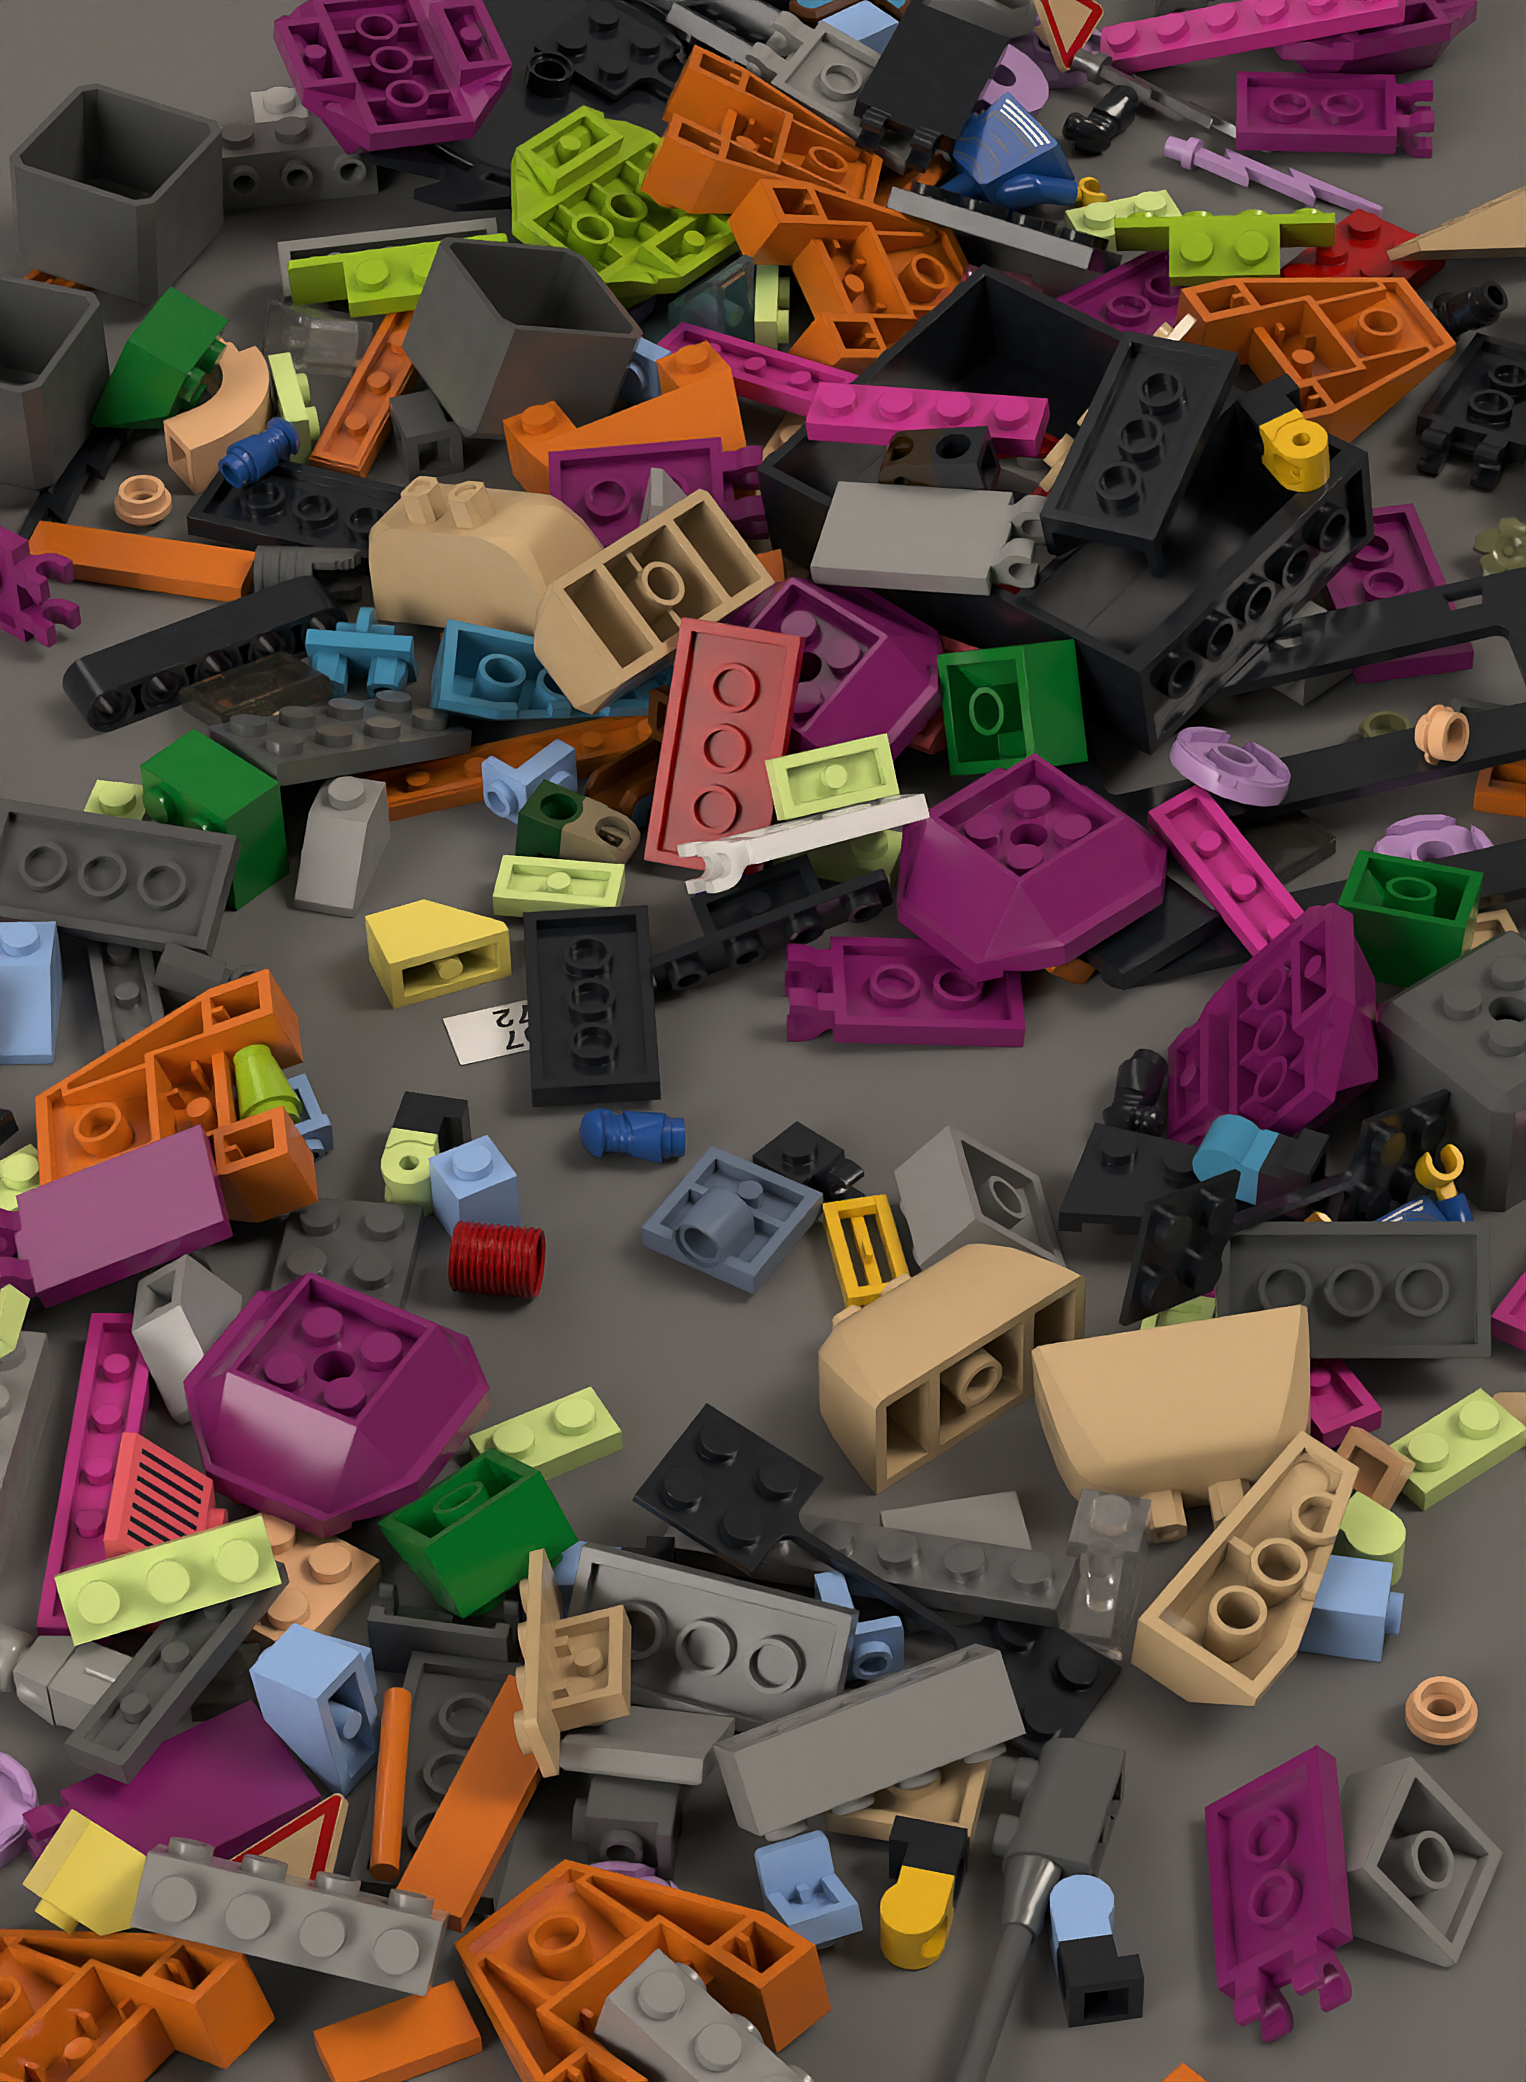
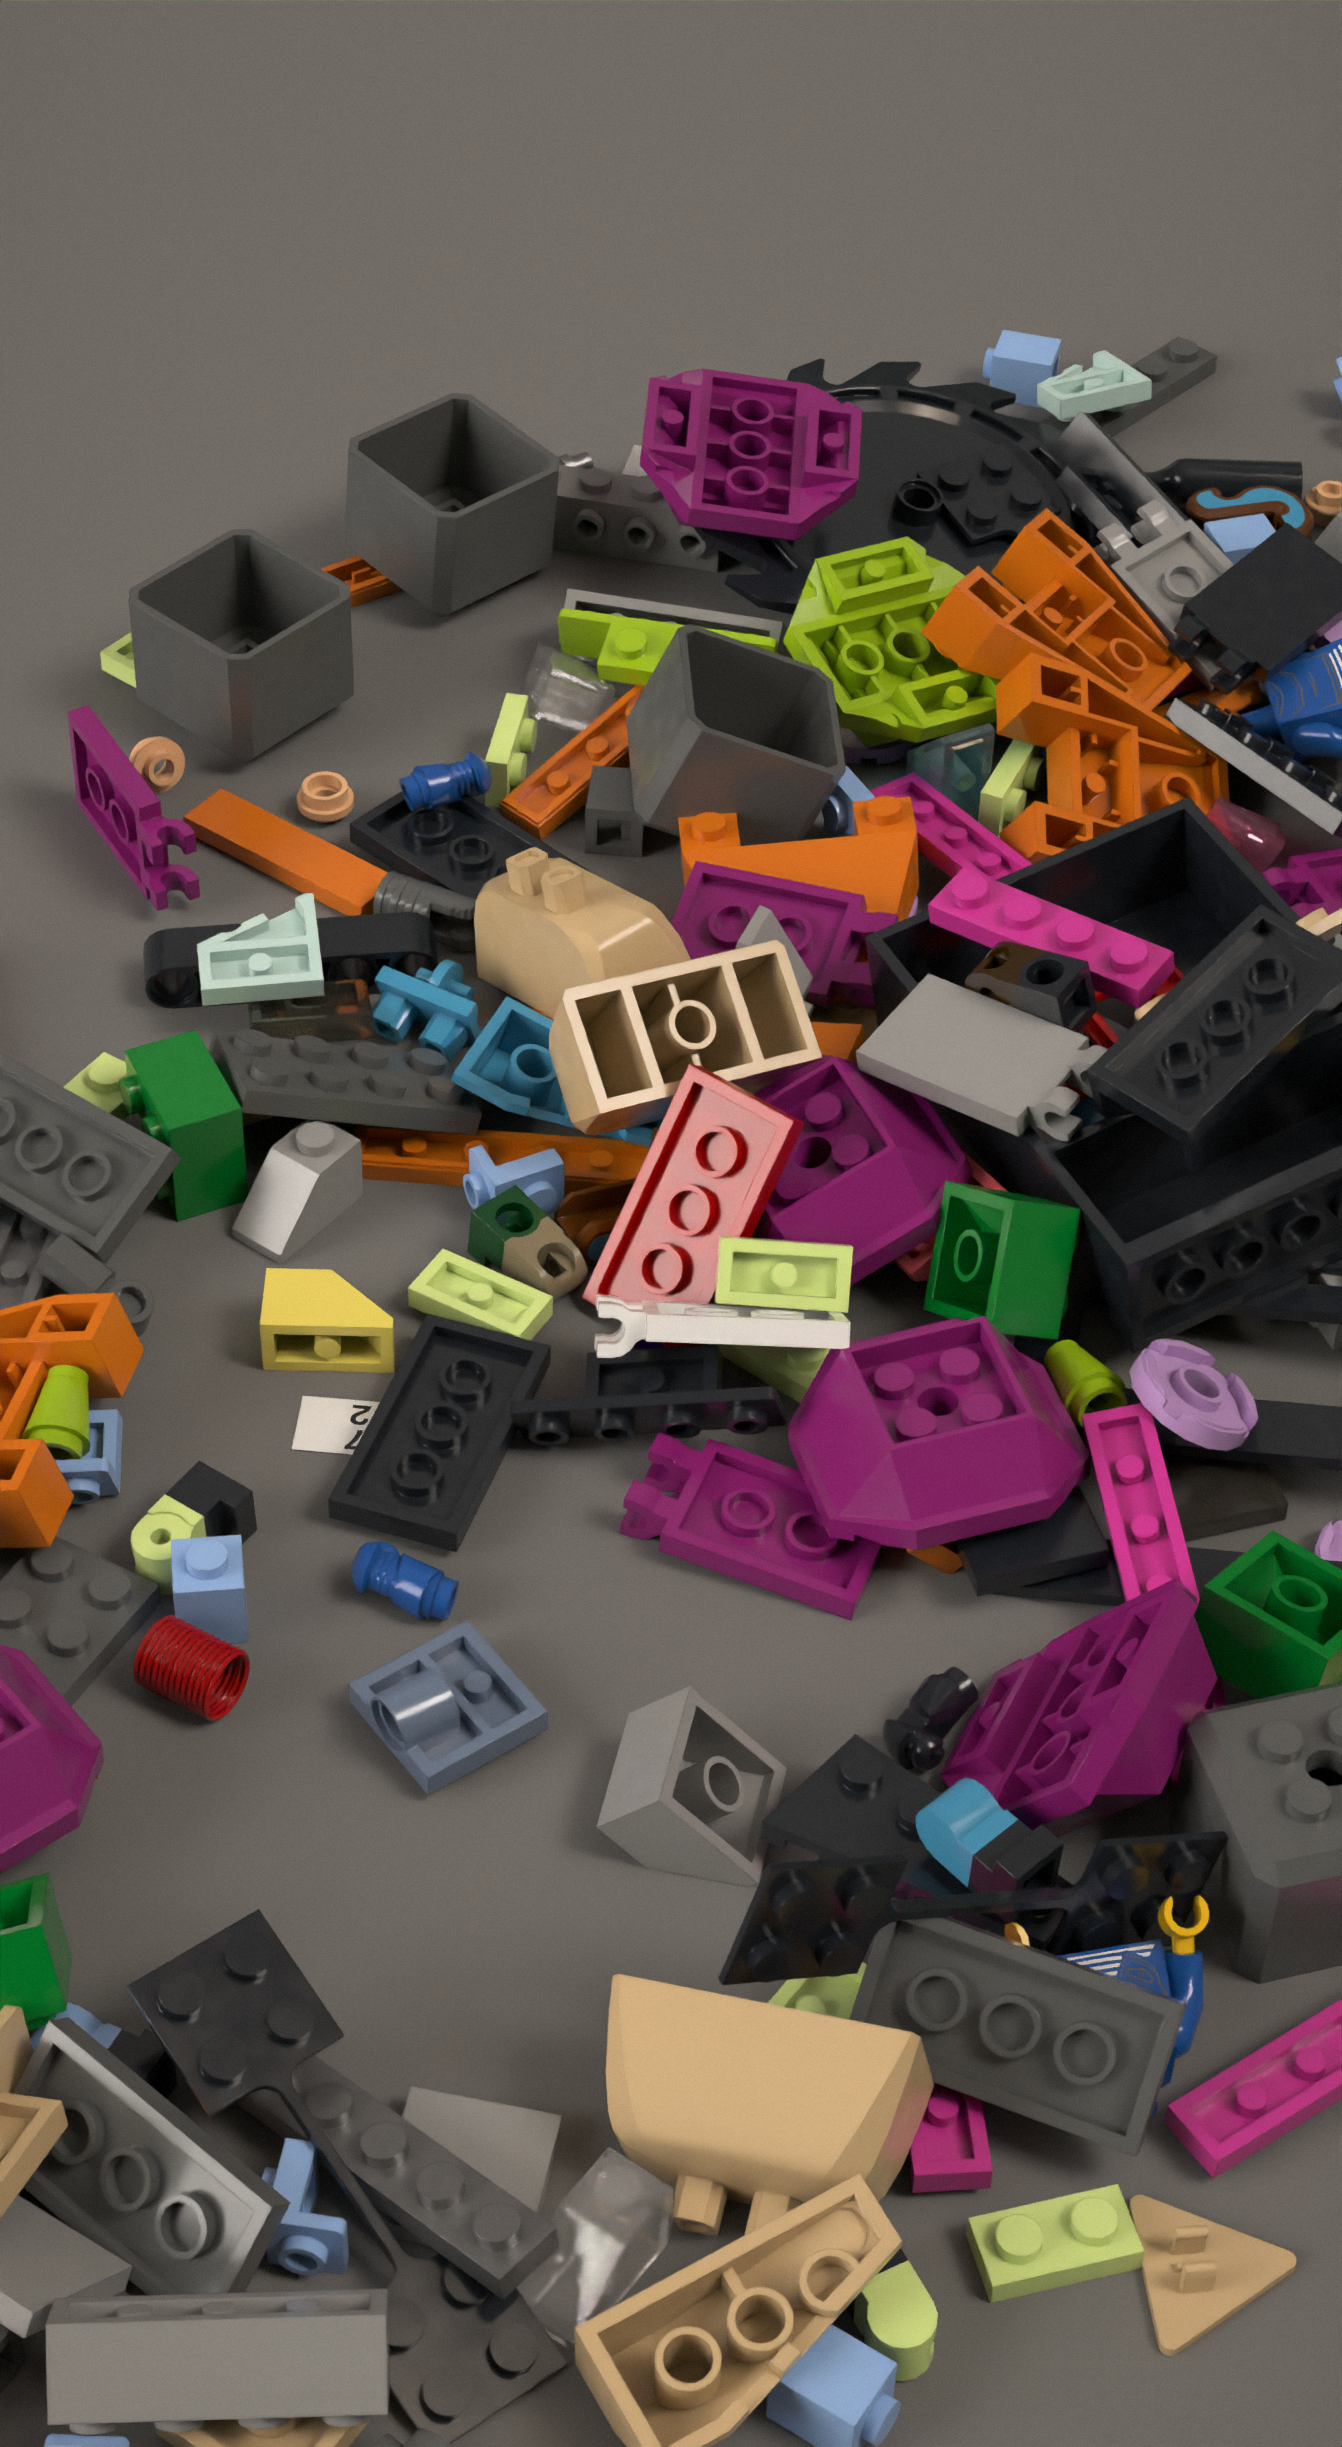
camera: 20 degrees right, 0 degrees up
(75, 477) = (340, 725): black piece -> none
(163, 365) = (397, 673): green slope -> none
(197, 654) = (264, 959): none -> light aqua wing
(237, 410) = (447, 736): light nougat arch -> none
(555, 1435) = (132, 1881): yellowish green plate -> none
(811, 1161) = (559, 1675): black plate -> none
(855, 1210) = (554, 1838): yellow tile -> none
(941, 1355) = (539, 1932): tan hips -> none
(1127, 787) = (1083, 1381): none -> lime cone
(1381, 1467) = (941, 2238): light nougat plate -> none

